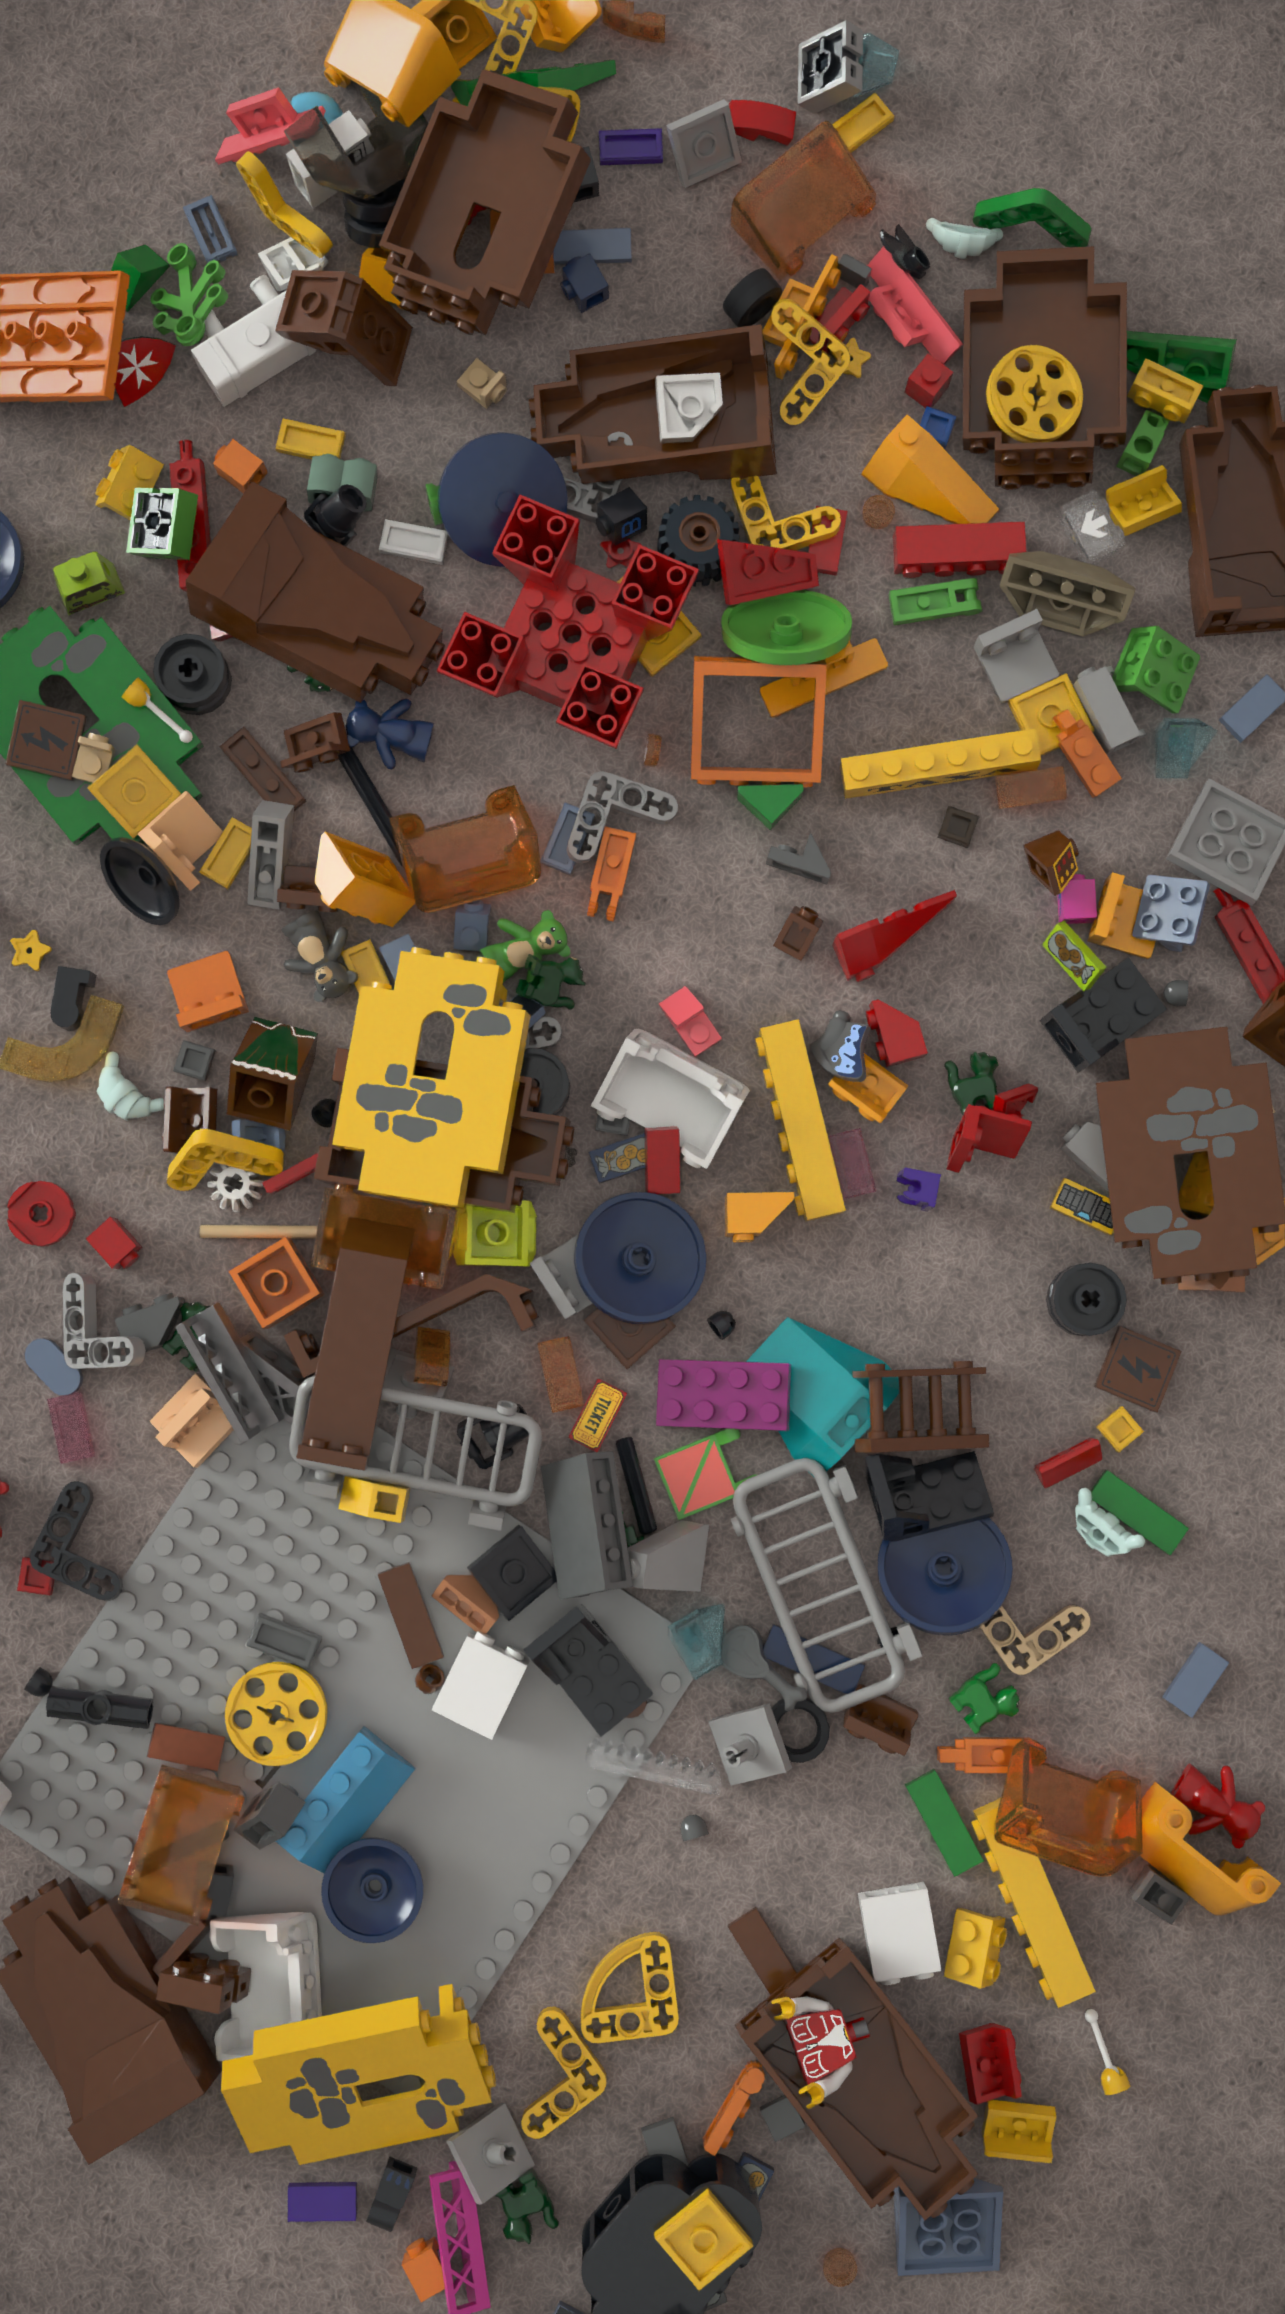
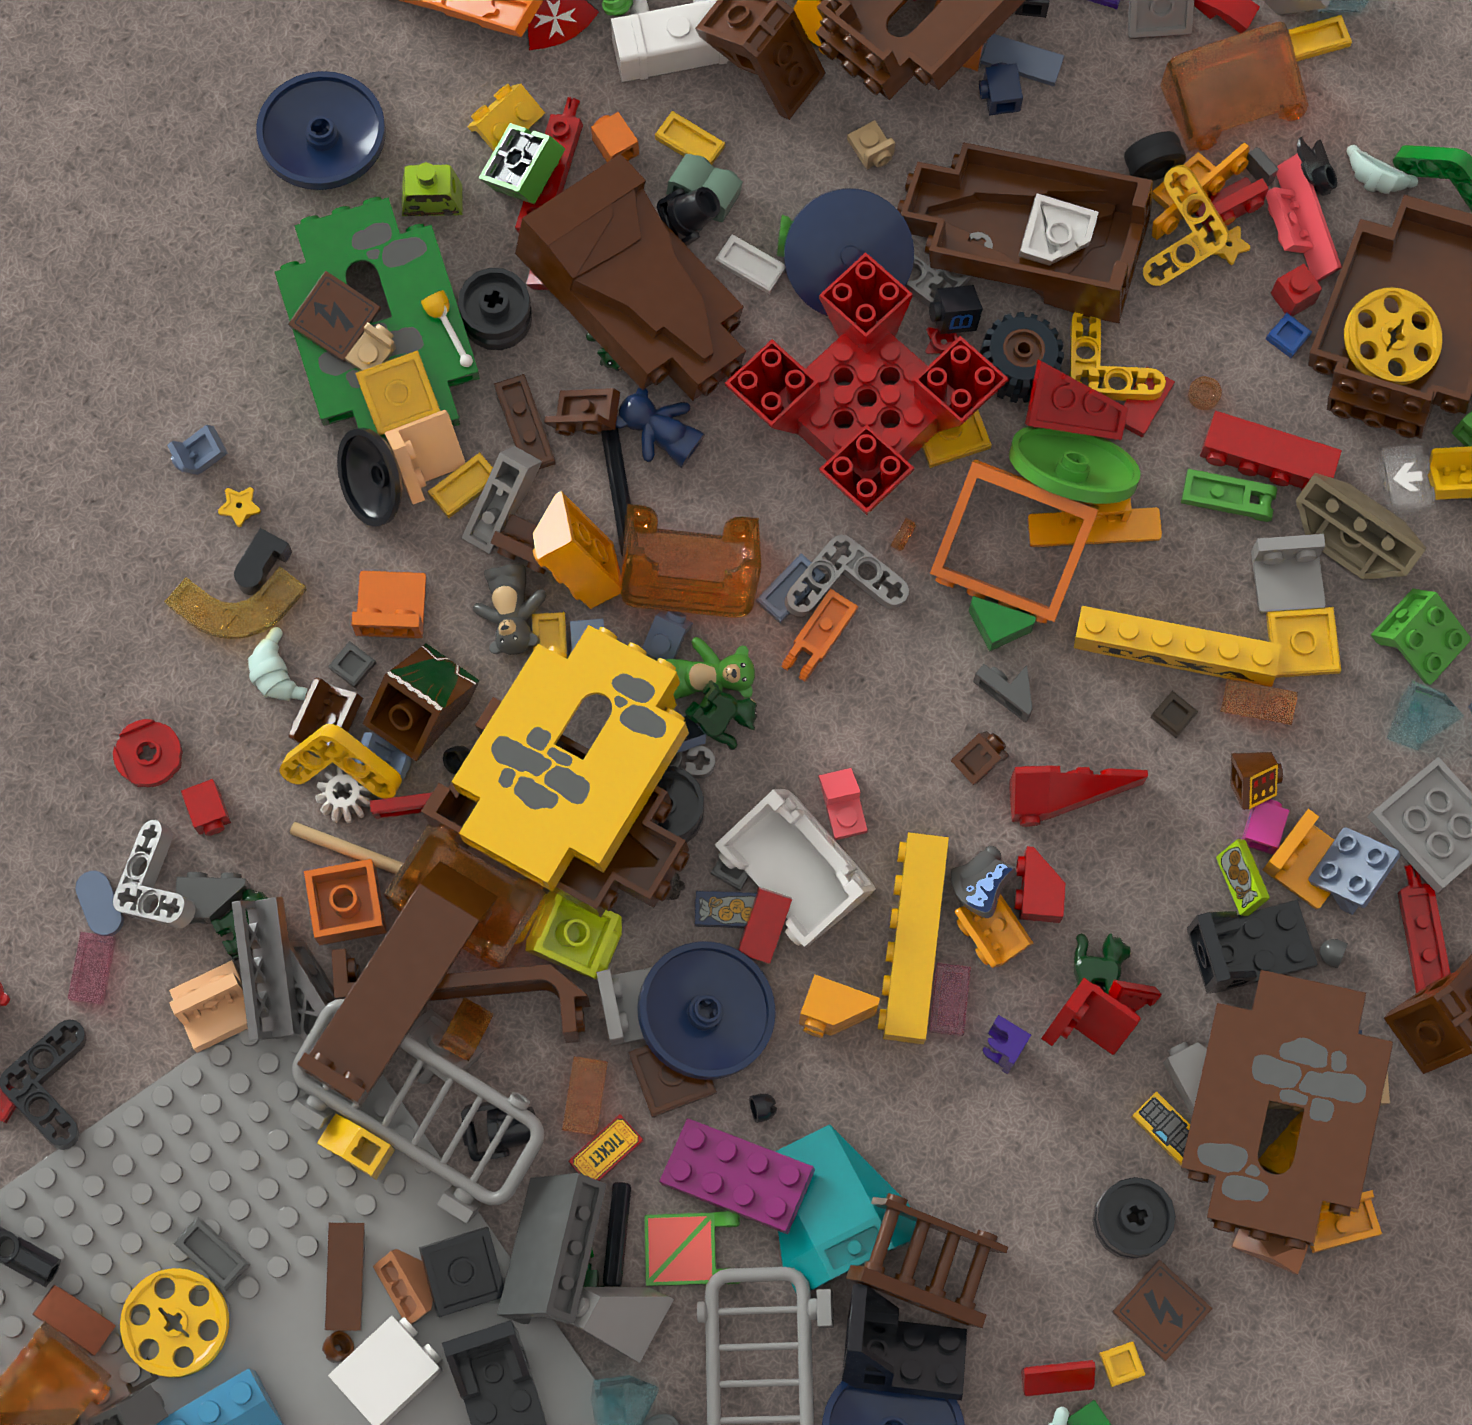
camera: 20 degrees right, 10 degrees down
(922, 473) = (1259, 371): light orange wedge -> none
(1085, 754) = (1324, 689): orange hinge -> none
(1106, 709) = (1359, 655): light grey brick -> none

